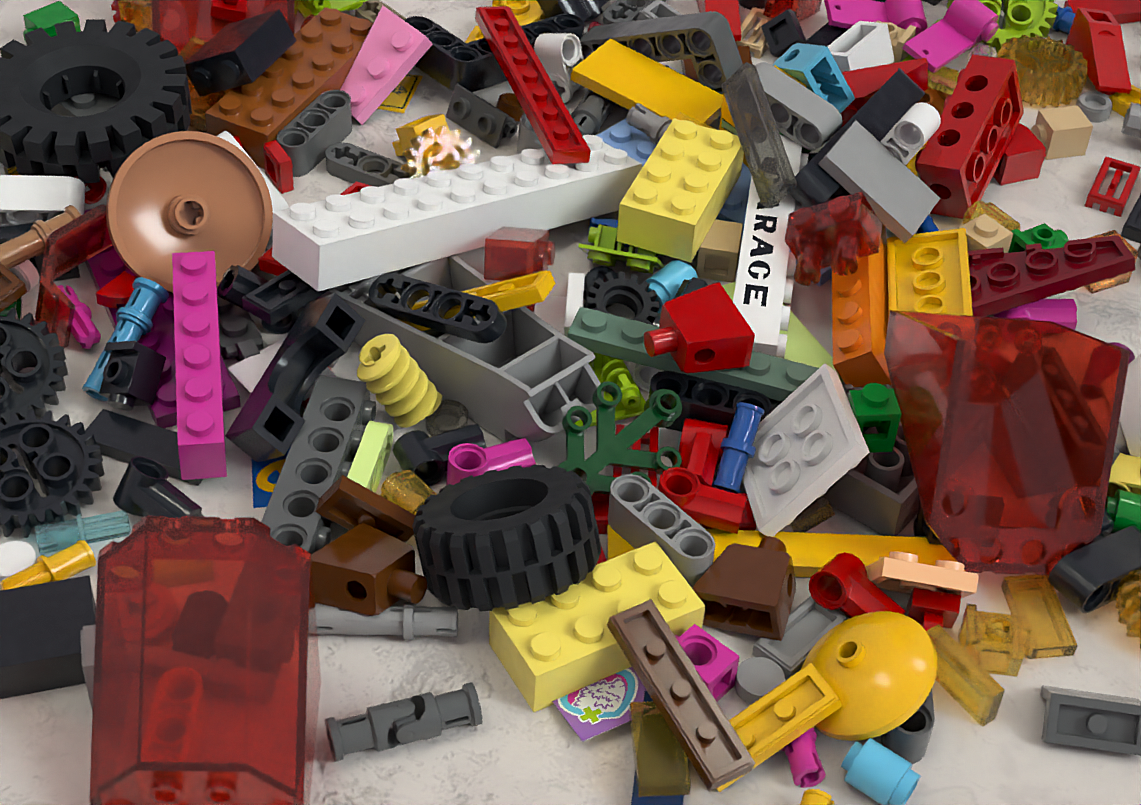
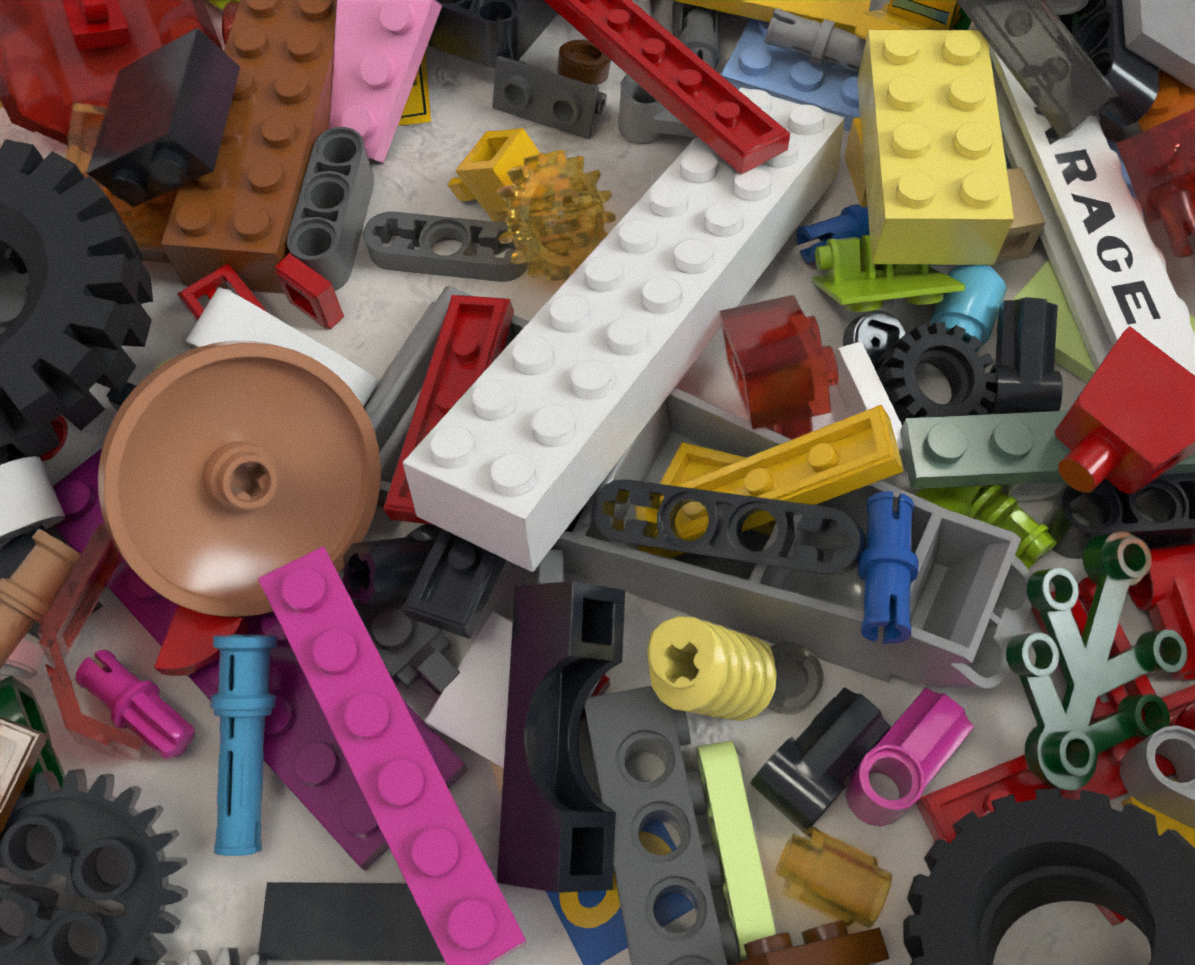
camera: 15 degrees left, 20 degrees up
(131, 375) = (288, 815): black brick -> none
(508, 340) = (888, 568): none -> blue pin

